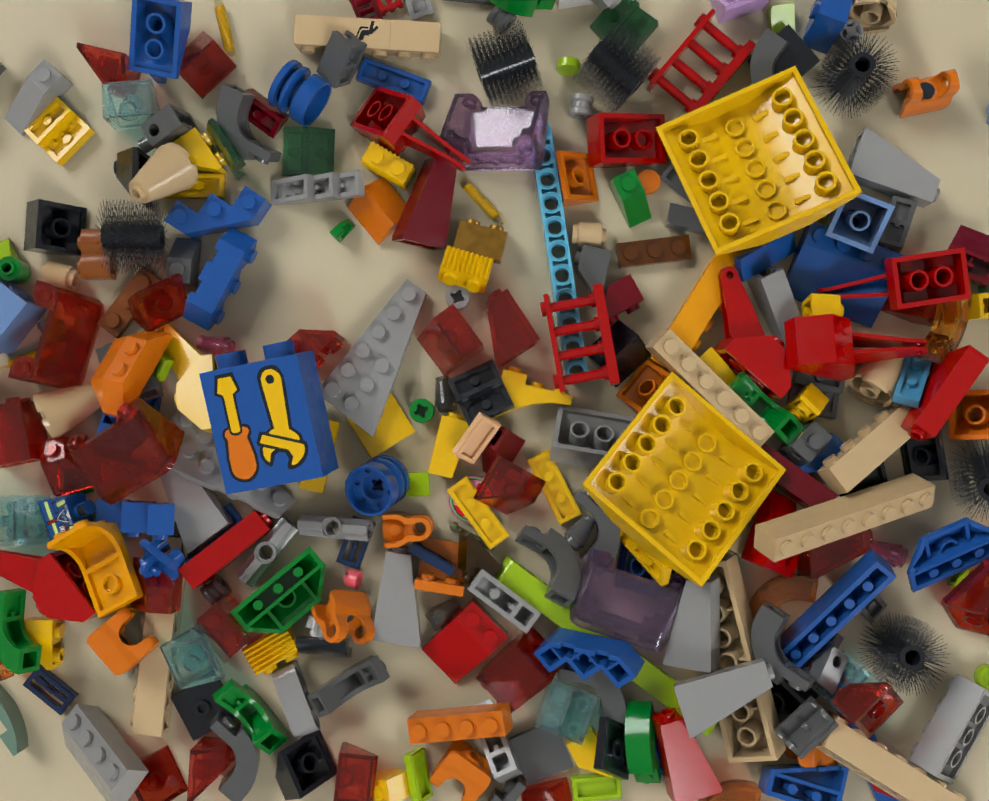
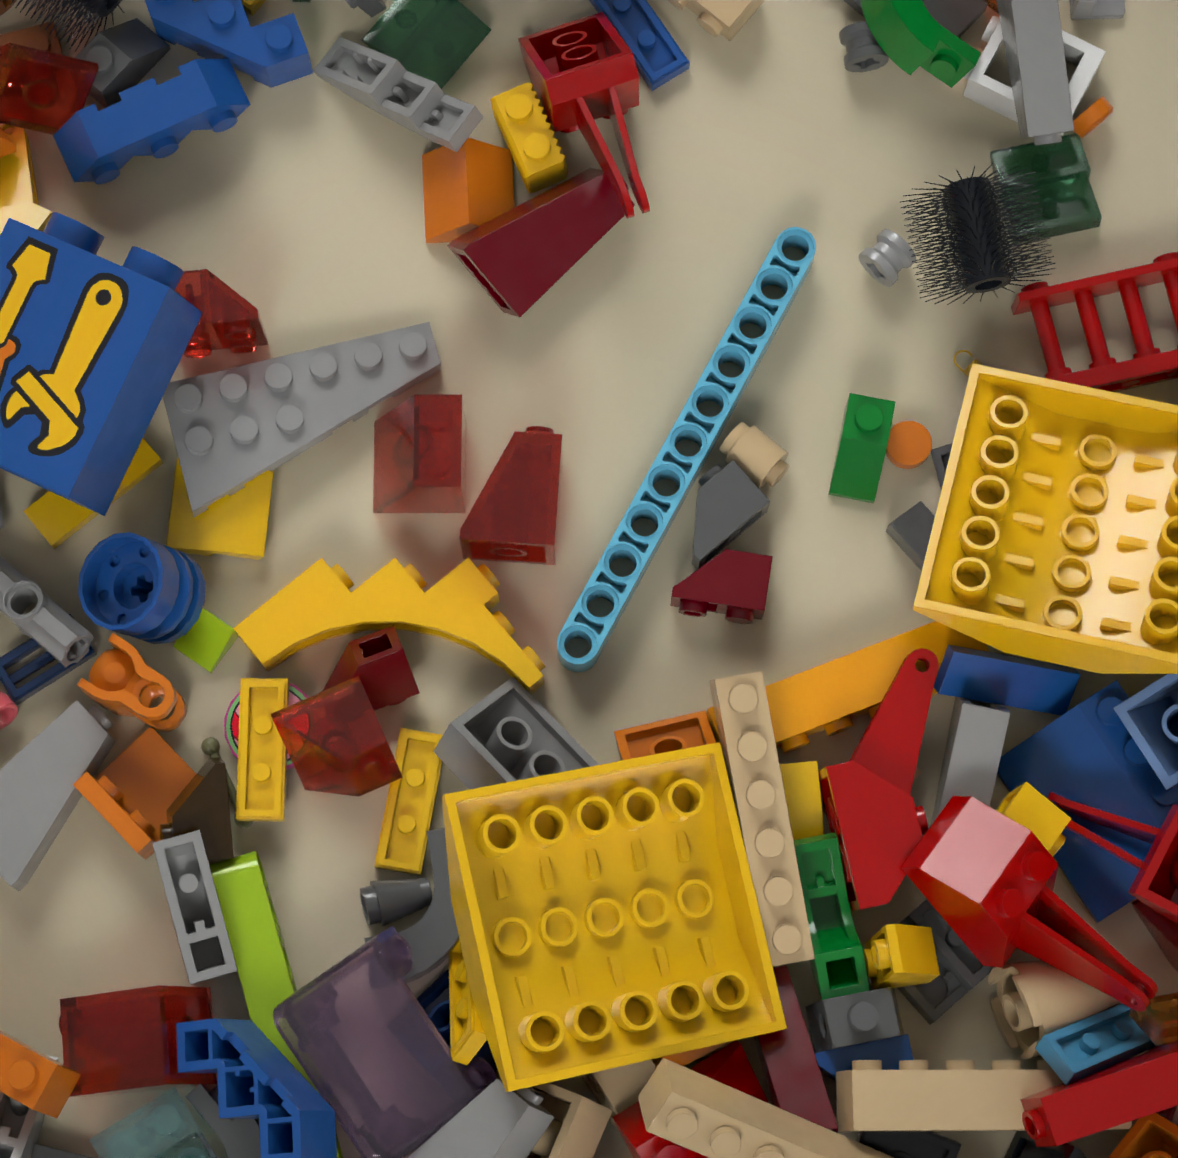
camera: 30 degrees right, 10 degrees down
(215, 344) = (60, 200): clear pink cone -> none
(342, 230) = (388, 181): green tile -> none
(425, 411) = (298, 543): green wheel -> none
(432, 558) = (138, 763): dark blue tile -> none
(443, 613) = (88, 866): clear smoke cone -> none
(444, 396) = (351, 536): clear smoke cone -> none
(460, 300) = (487, 414): light grey wheel -> none
(465, 269) = (524, 368): yellow brick -> none
(465, 641) = (89, 933): red slope -> none
(476, 438) = (345, 627): light nougat tile -> none
(481, 201) = (630, 289): yellow piece -> none
(481, 239) = (582, 346): pearl gold brick -> none
(481, 391) = (404, 567): black slope -> none
(498, 138) = (723, 207): clear purple windscreen -> none
(505, 64) = (809, 111): black piece -> none
(561, 561) = (333, 911): dark grey arch -> none
(568, 66) = (911, 177): lime tile -> none
(576, 178) = (799, 357): orange slope -> none
(599, 323) = (645, 634): red fence -> none
(624, 140) = (914, 353): red slope -> none
(628, 348) = (665, 669): black slope -> none
(653, 251) = (838, 555): reddish brown plate -> none

